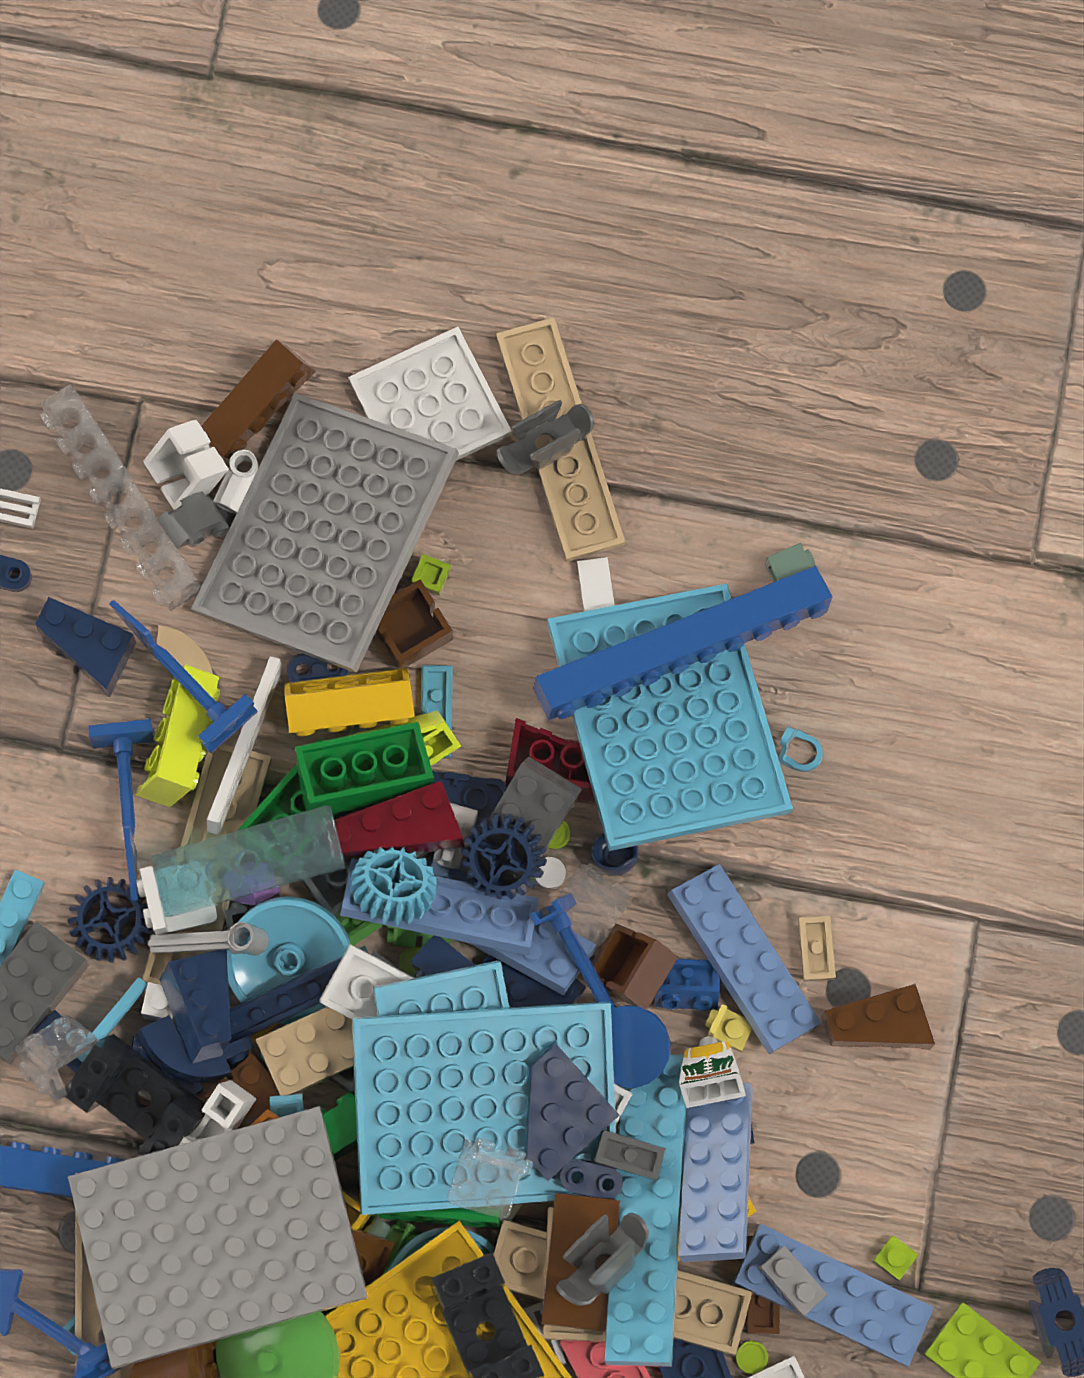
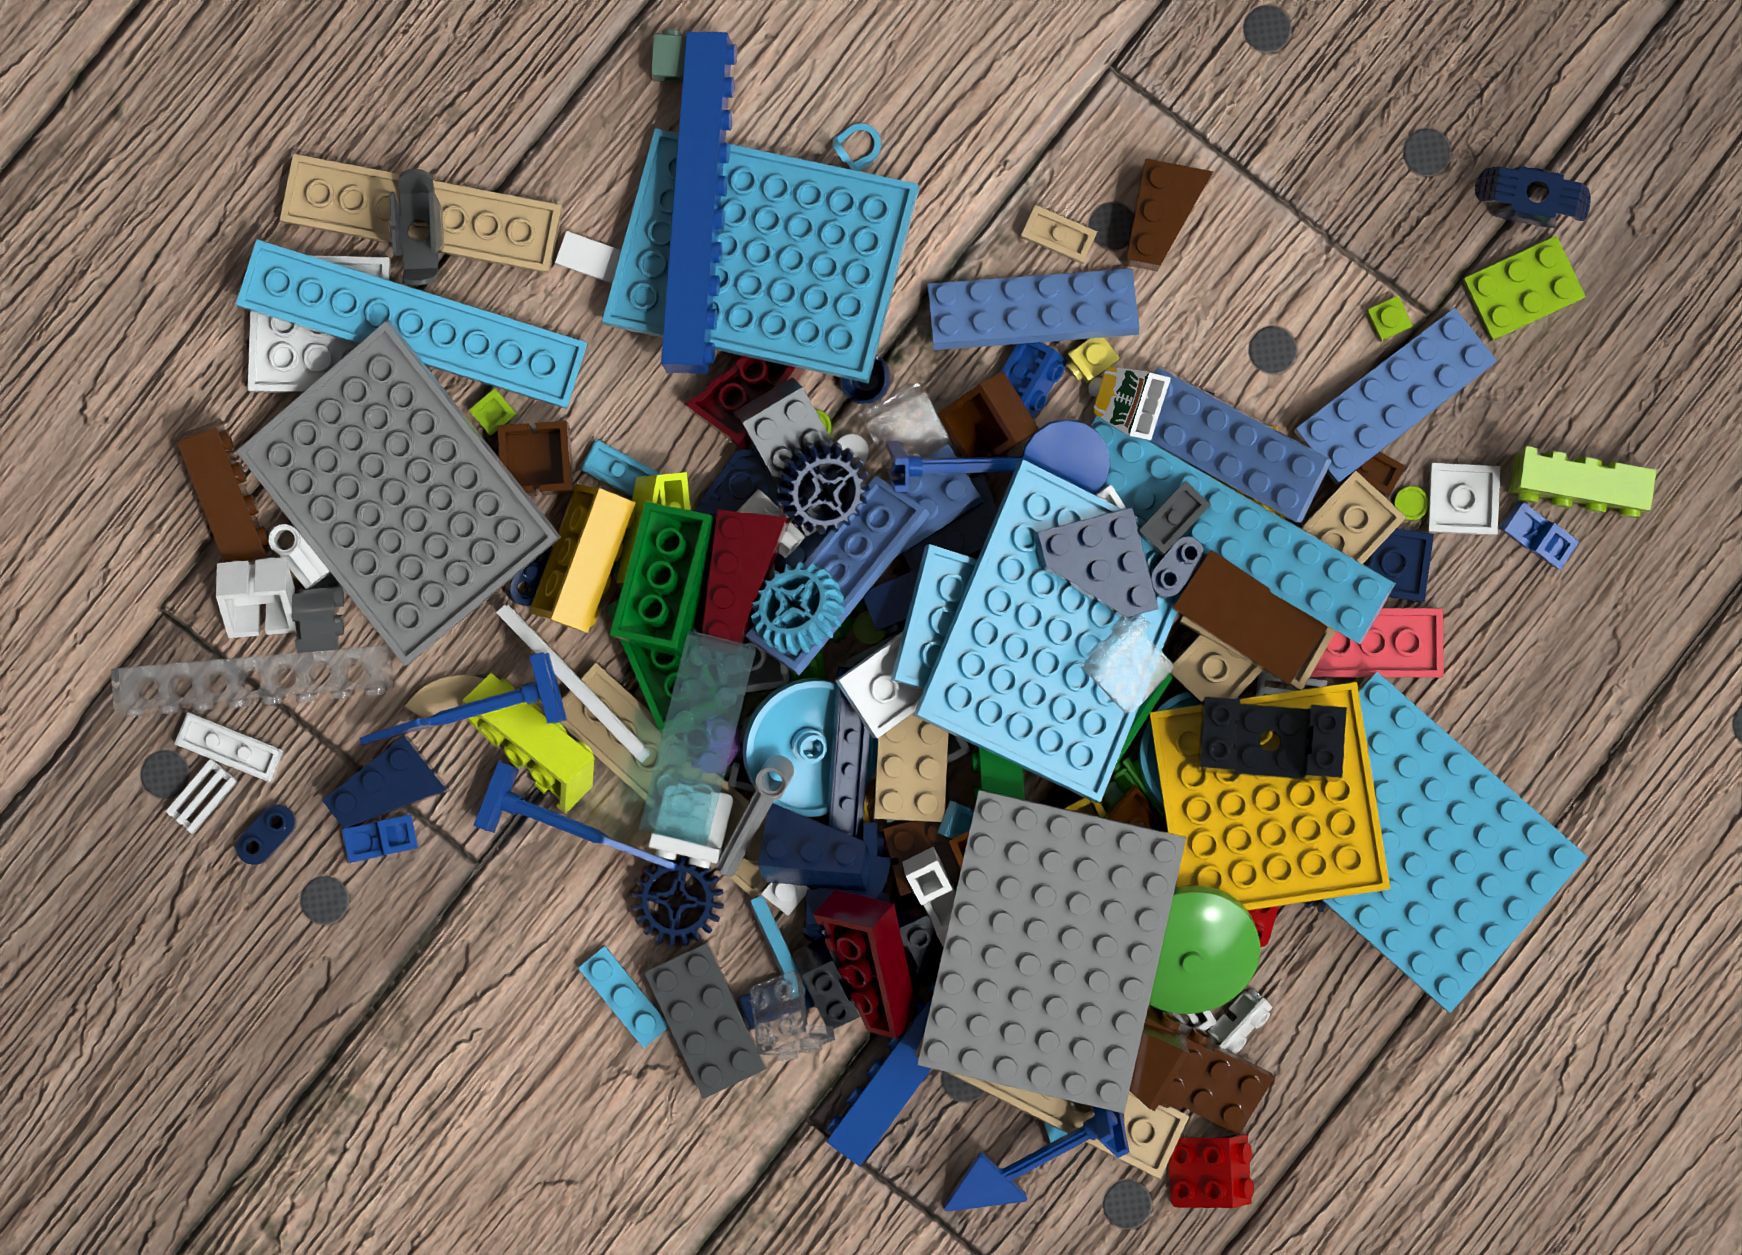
camera: 60 degrees left, 10 degrees up
(41, 660) = (379, 838): none -> blue slope
(56, 508) = (229, 747): none -> white tile
(137, 1095) = (871, 959): none -> dark red wedge
(473, 492) = (437, 329): none -> medium azure plate
(623, 1248) = (1258, 569): dark grey piece -> none
(793, 1281) = (1367, 426): light grey plate -> none

